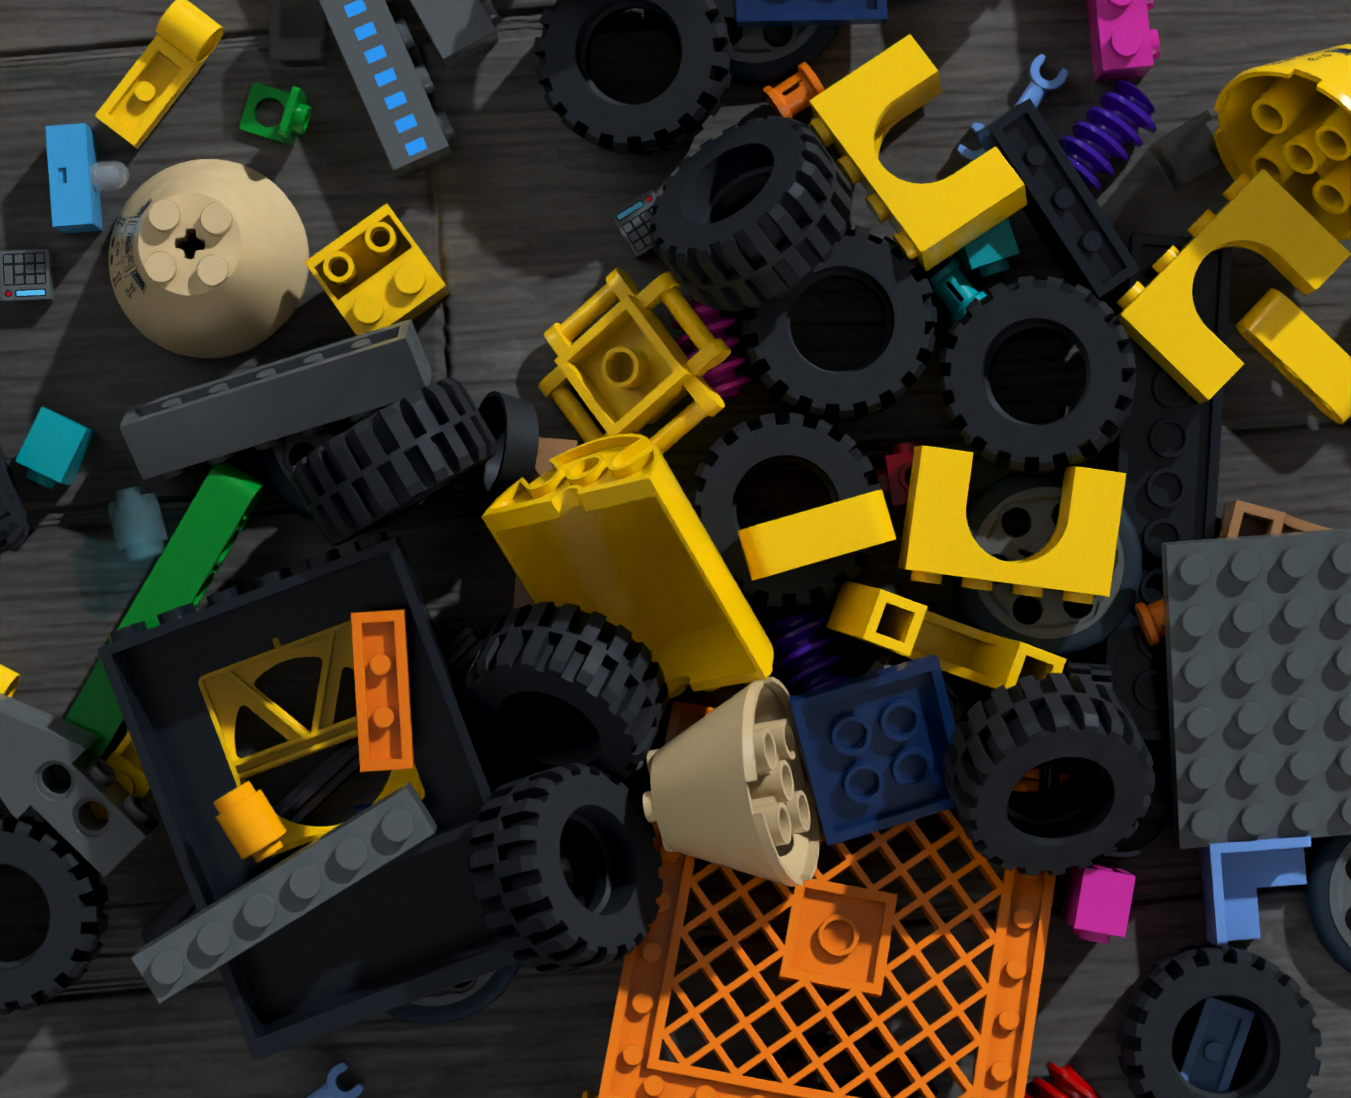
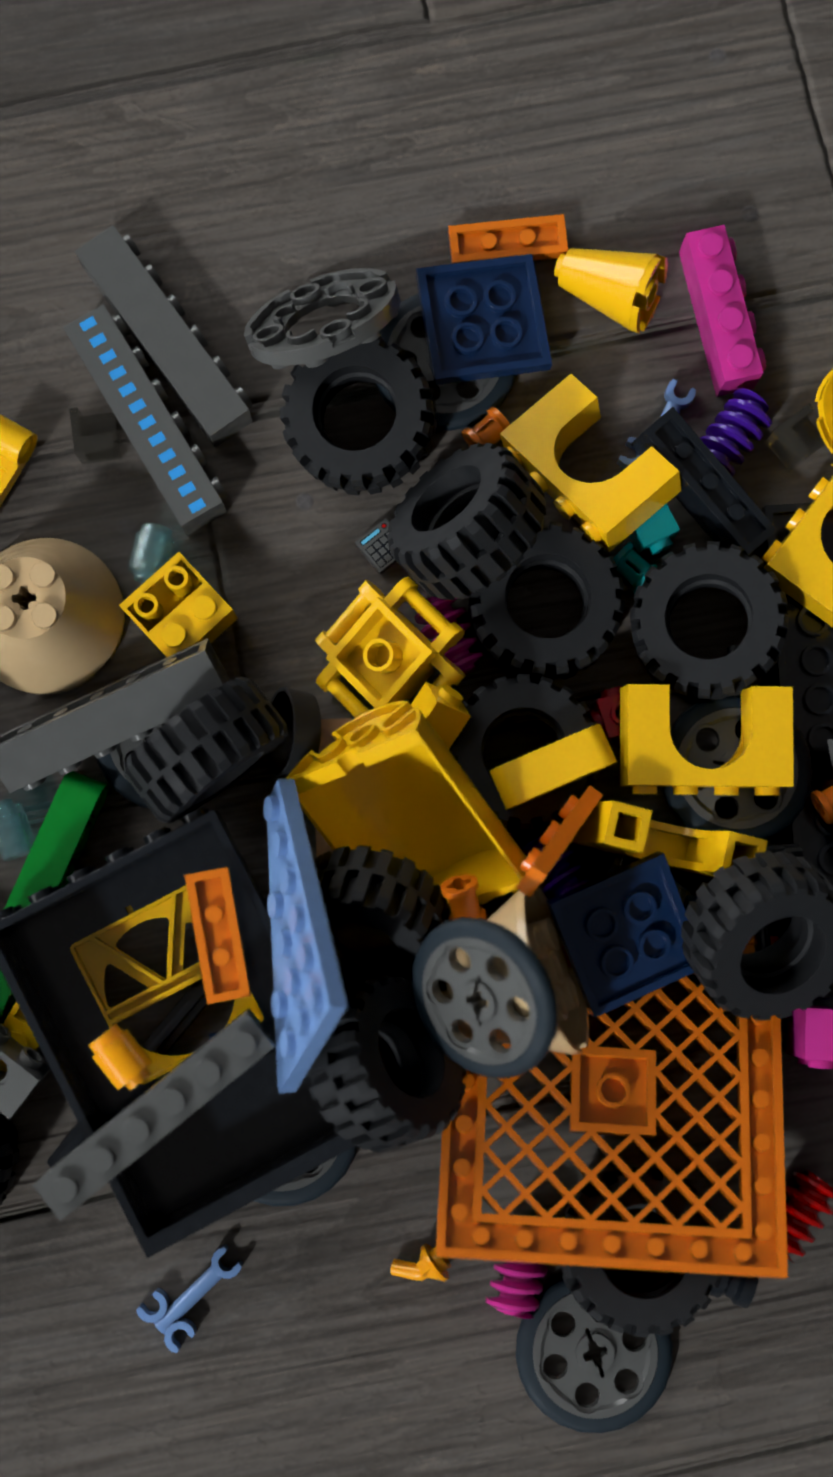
camera: 10 degrees left, 5 degrees down
(295, 116) = (98, 500): green bracket -> none
(350, 195) = (150, 551): none -> clear light blue brick
(482, 743) = (305, 968): none -> medium blue wing
(684, 687) = (463, 897): none -> orange bush
(688, 449) = (443, 710): none -> yellow brick
(743, 793) = (526, 980): none -> wedge
(807, 626) = (556, 840): none -> orange wing

